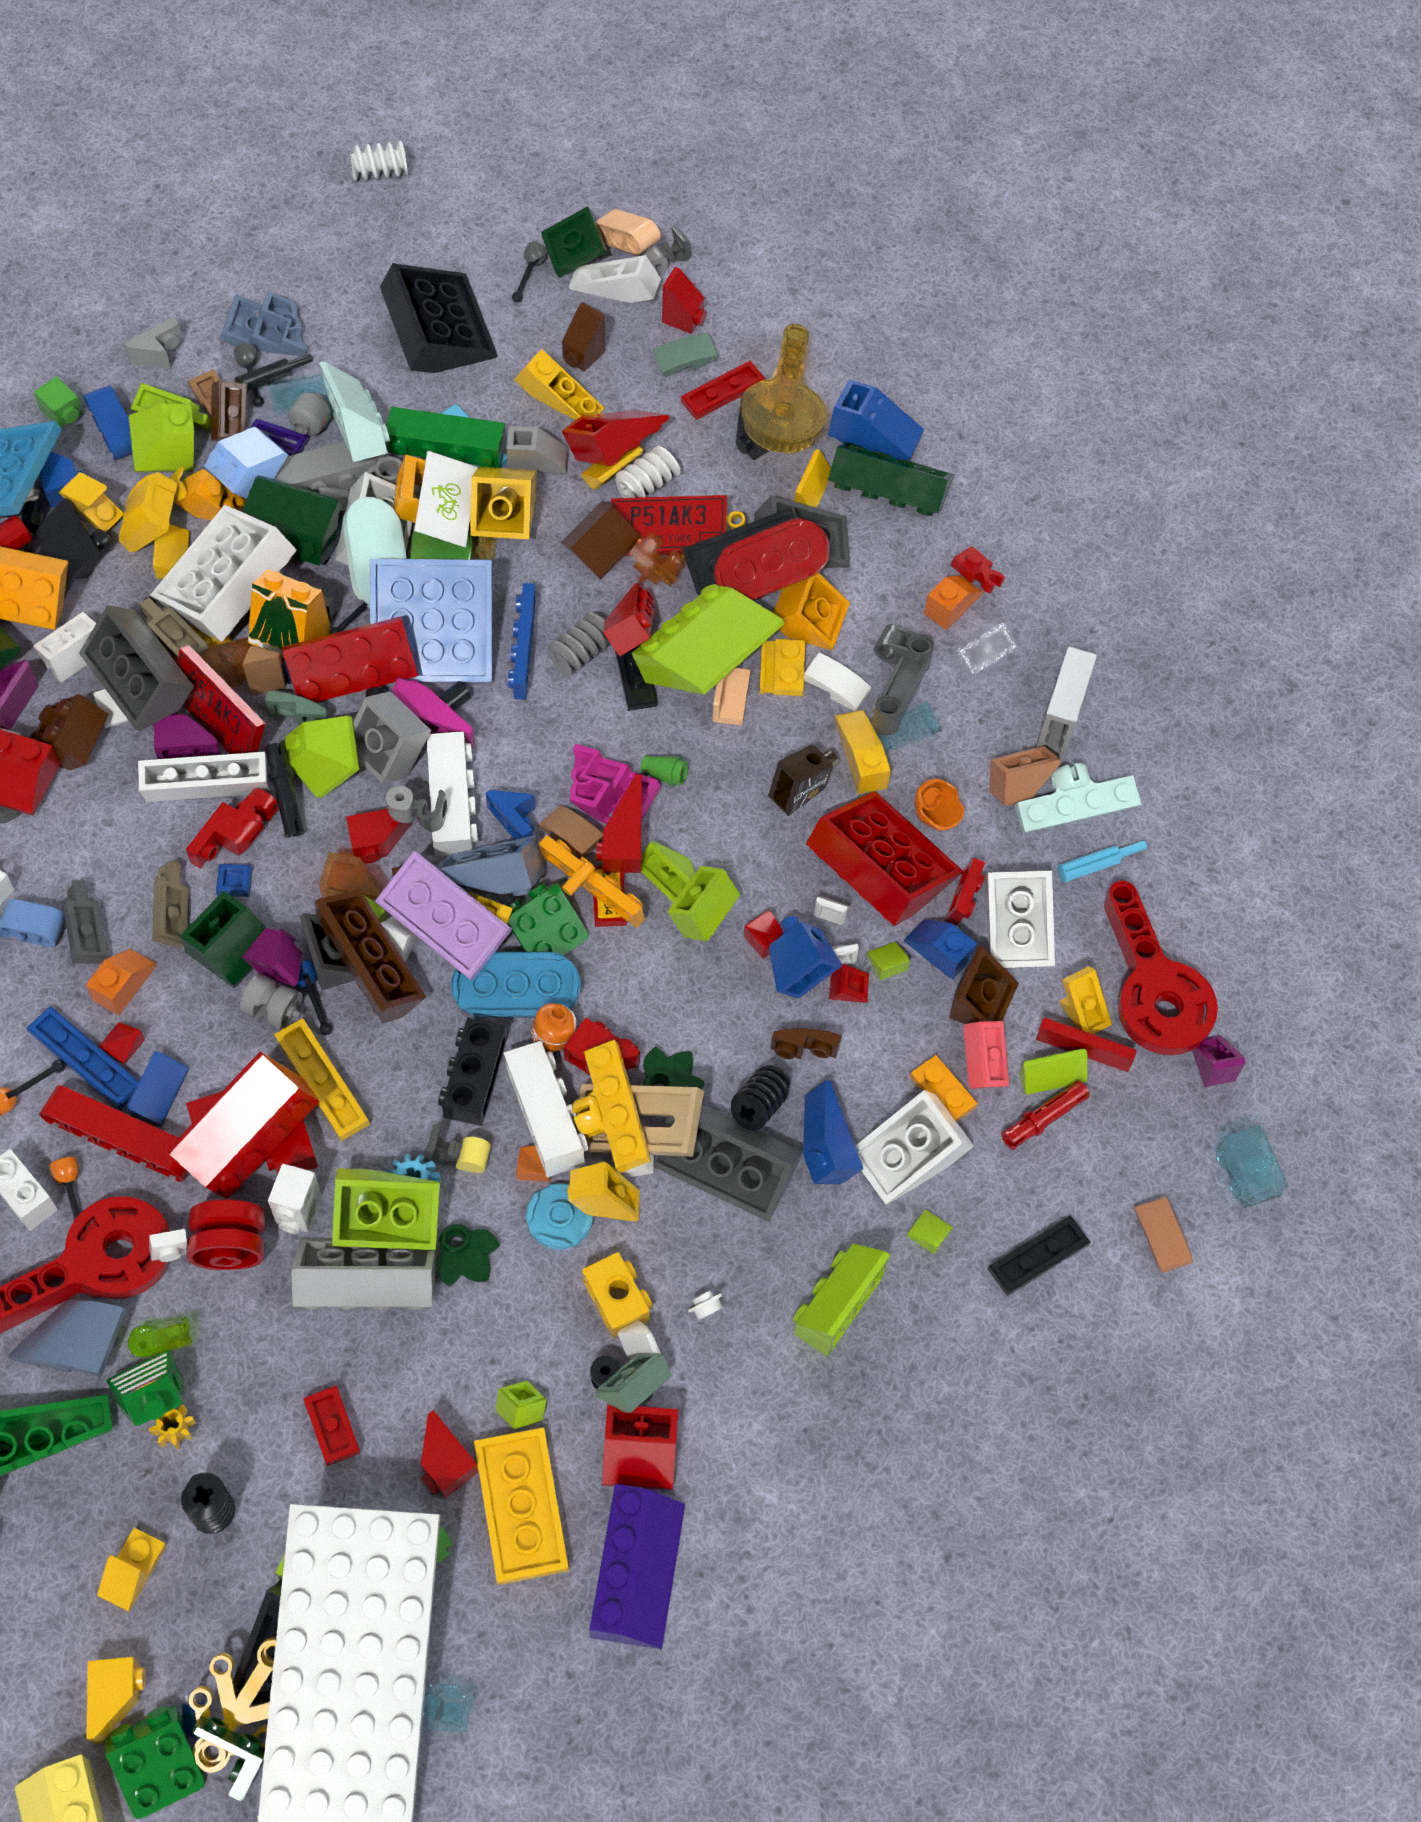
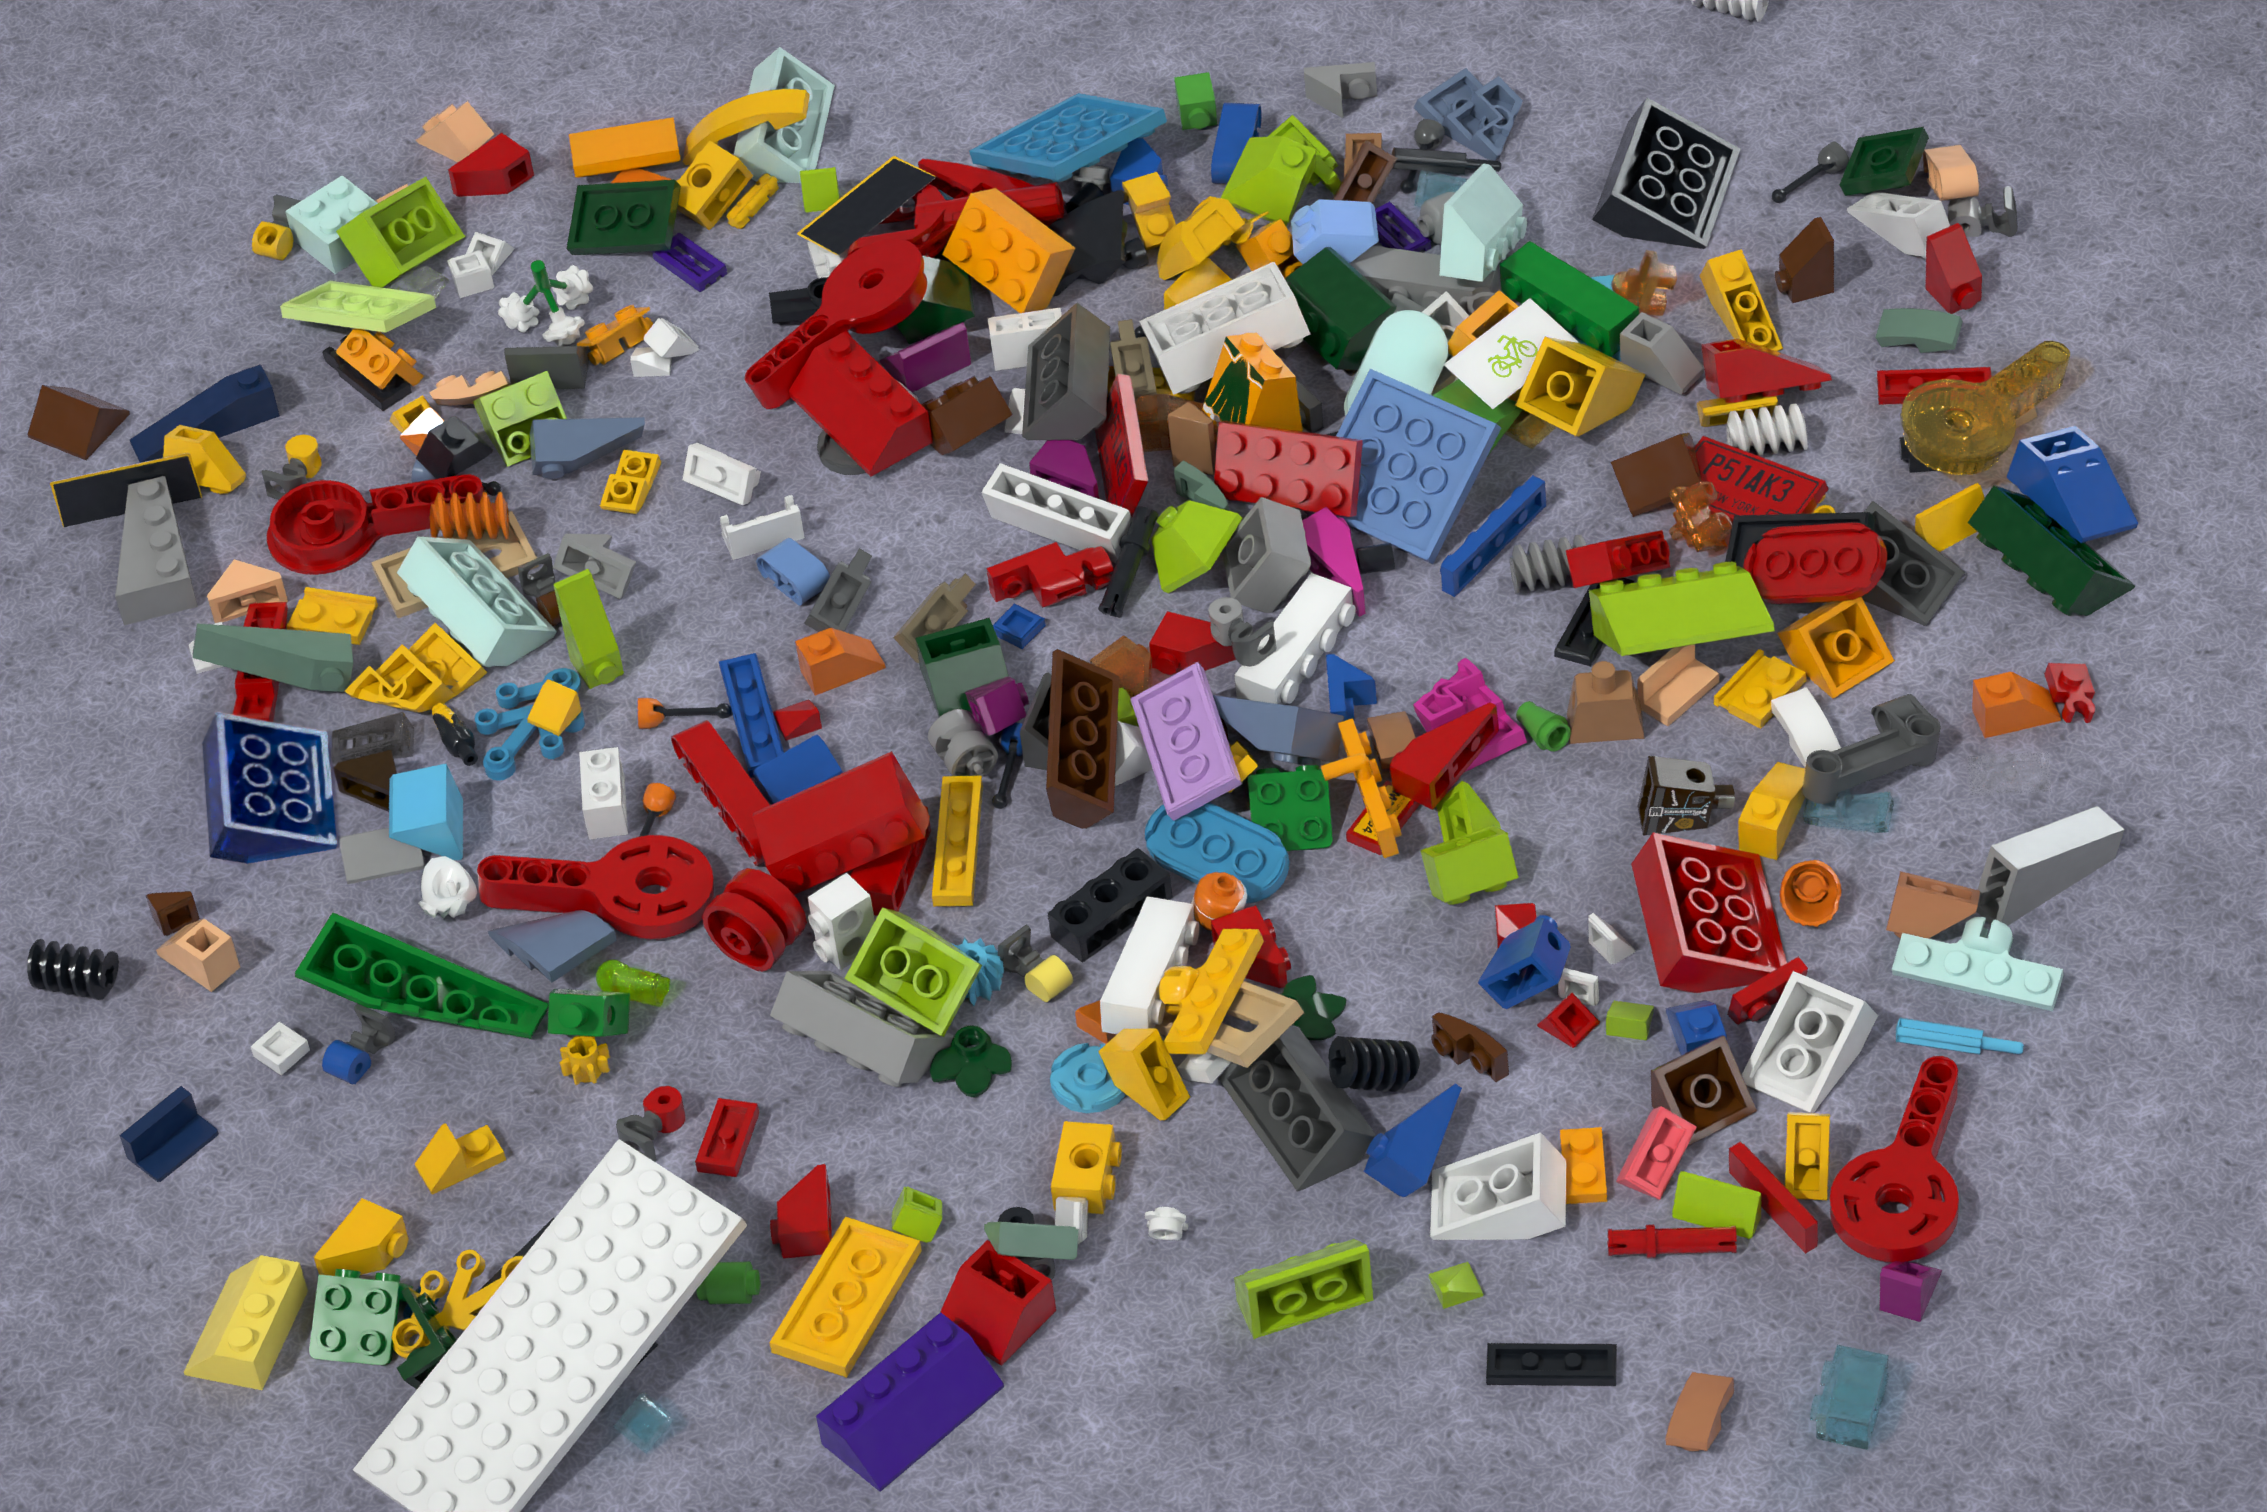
camera: 45 degrees right, 15 degrees down
(168, 1245) = (692, 897): white plate -> none
(198, 1493) = (562, 1130): black piece -> none
(265, 1434) = (662, 1114): none -> leg
(490, 401) = (1641, 284): none -> clear orange hips
(705, 734) = (1604, 706): none -> medium nougat torso

